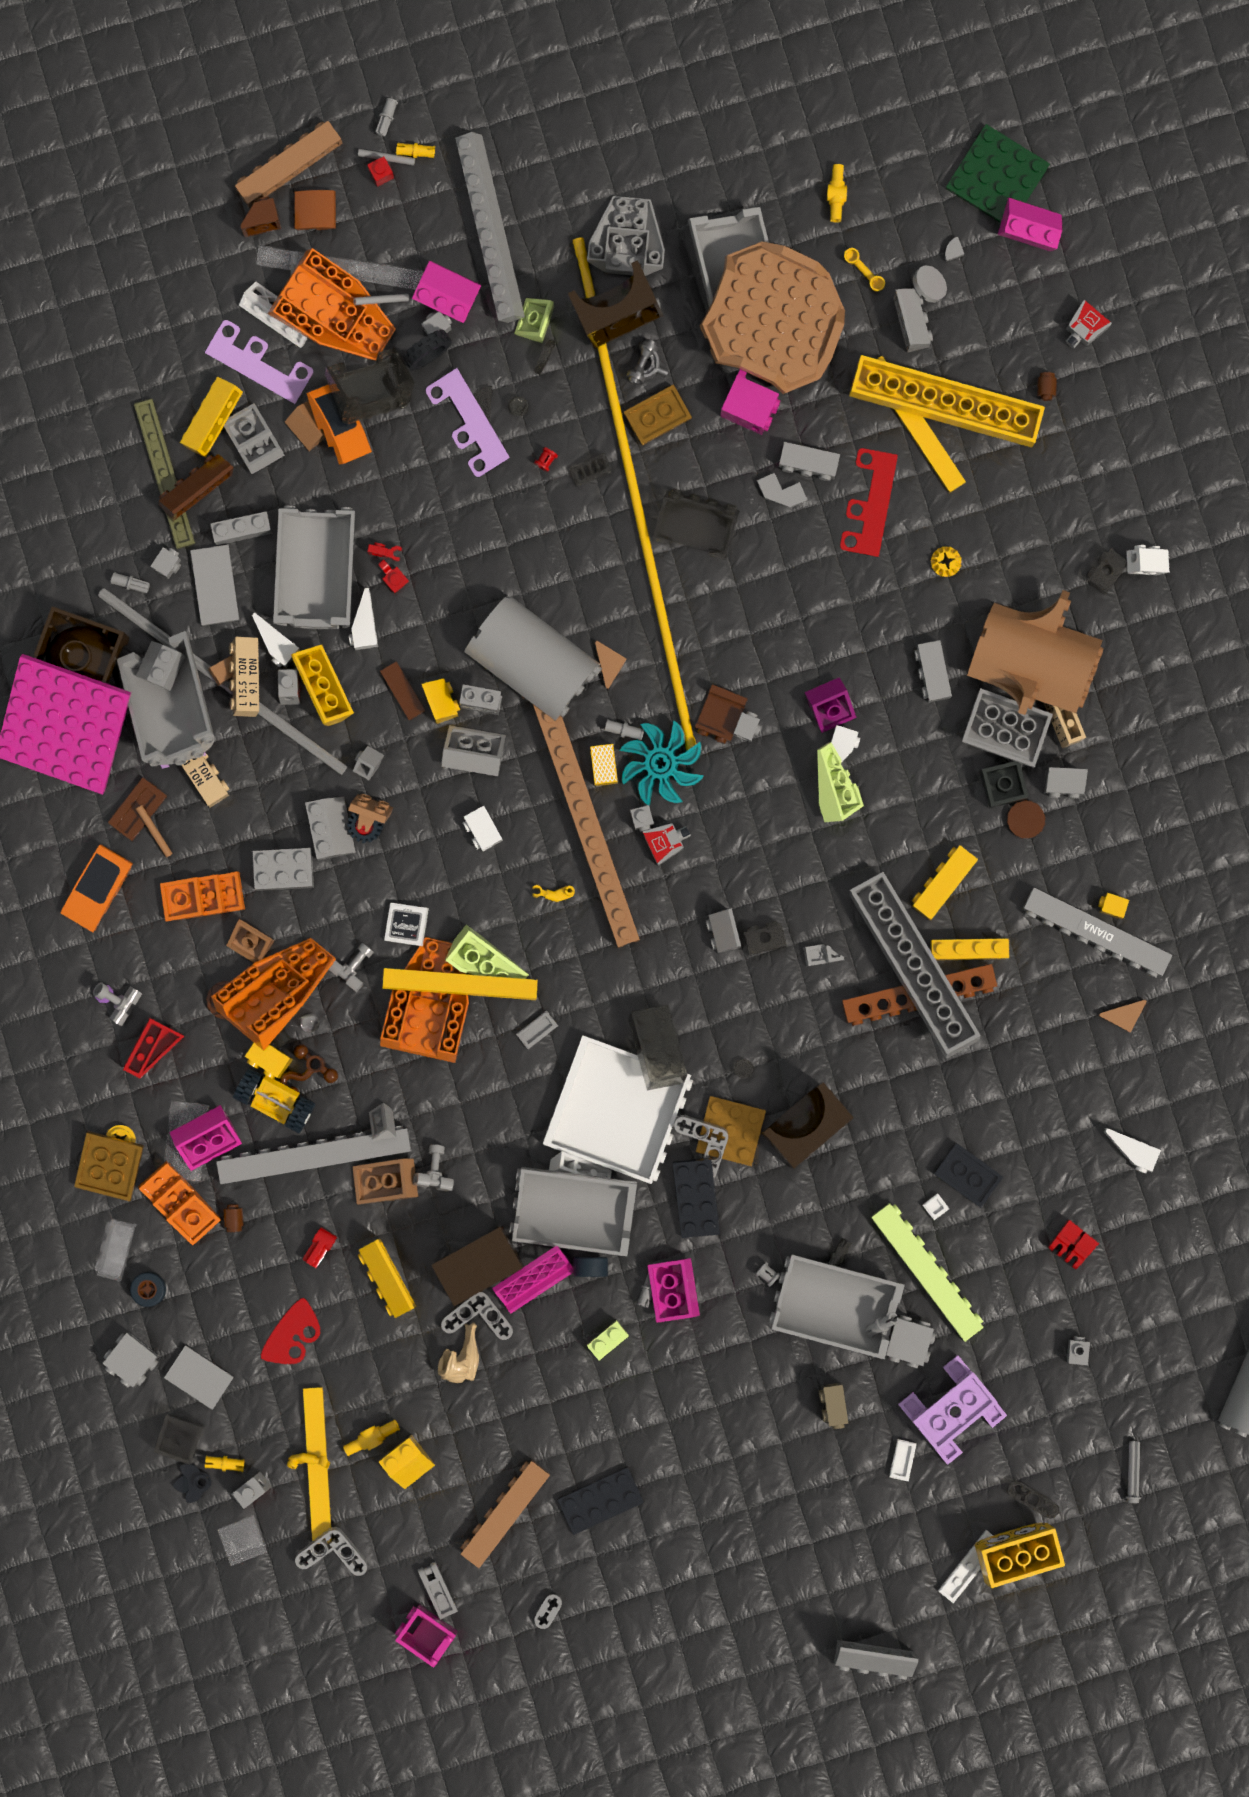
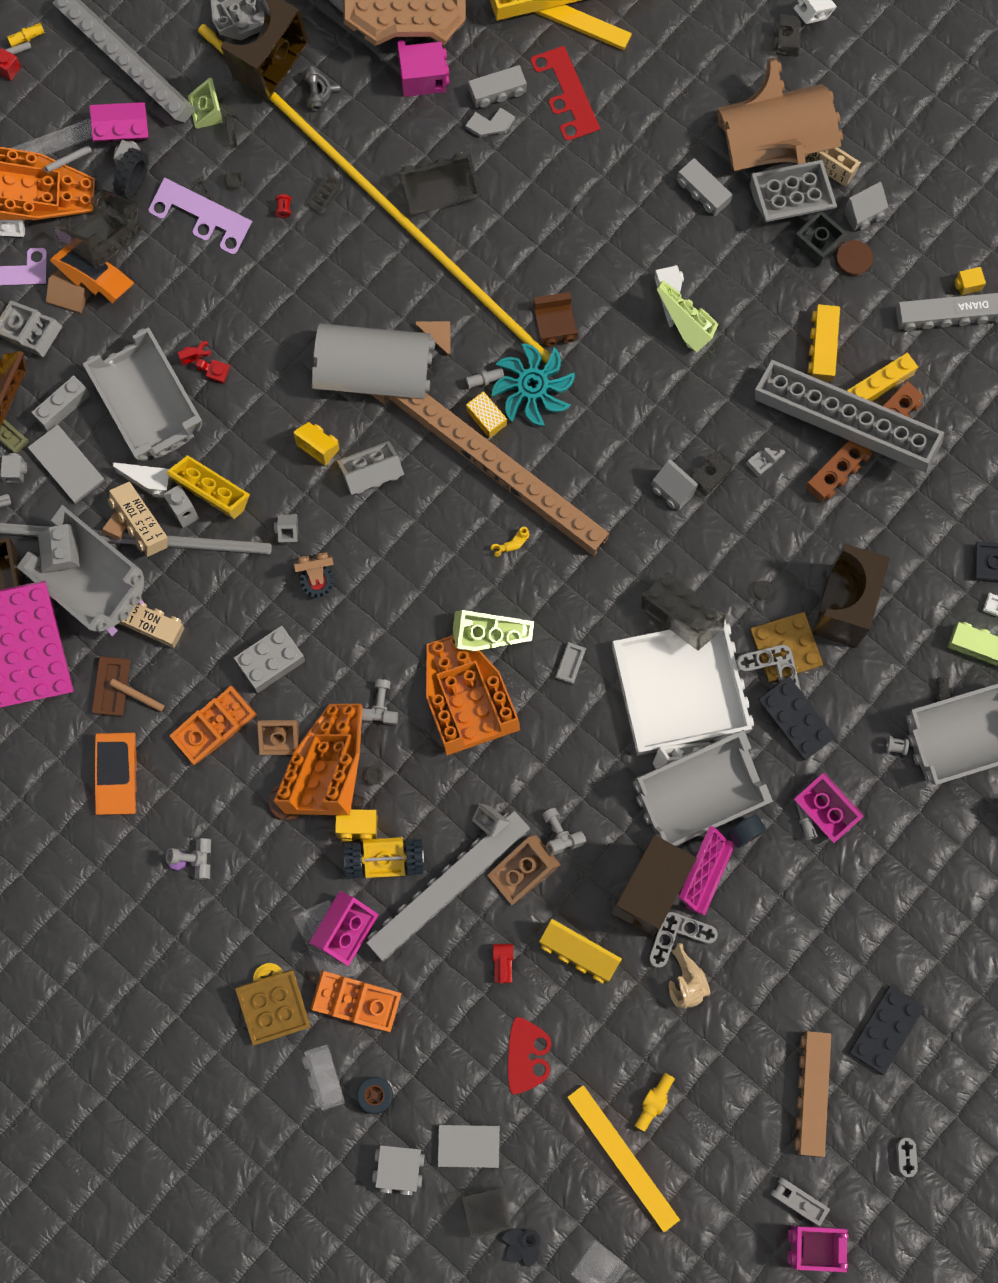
camera: 35 degrees left, 10 degrees down
(151, 1047) = (246, 879): red wedge -> none
(224, 1463) = (540, 1209): yellow pin -> none
(233, 1218) = (411, 984): reddish brown brick -> none
(251, 1490) = (579, 1219): light grey torso -> none
(301, 1052) = (381, 803): reddish brown piece -> none
(302, 1458) = (607, 1158): yellow arm -> none
(329, 827) = (288, 602): light grey slope -> none
(336, 1546) = (685, 1219): light grey beam -> none
(363, 628) = (217, 426): white slope -> none
(402, 691) = (279, 455): reddish brown tile -> none
(406, 924) = (404, 642): tile -> none
(406, 1462) = (699, 1102): yellow slope -> none
(459, 984) = (481, 661): yellow tile -> none
(480, 699) = (351, 419): light grey panel -> none
(483, 829) = (418, 525): white brick -> none
(607, 1340) = (802, 885): yellowish green brick -> none
(642, 818) = (545, 437): light grey brick -> none
(657, 415) = (352, 121): pearl gold plate -> none
(665, 841) = (576, 445): torso -> none
(747, 726) = (584, 316): light grey brick -> none
(830, 704) = (639, 259): magenta slope -> none
(941, 569) = (656, 108): yellow gear -> none

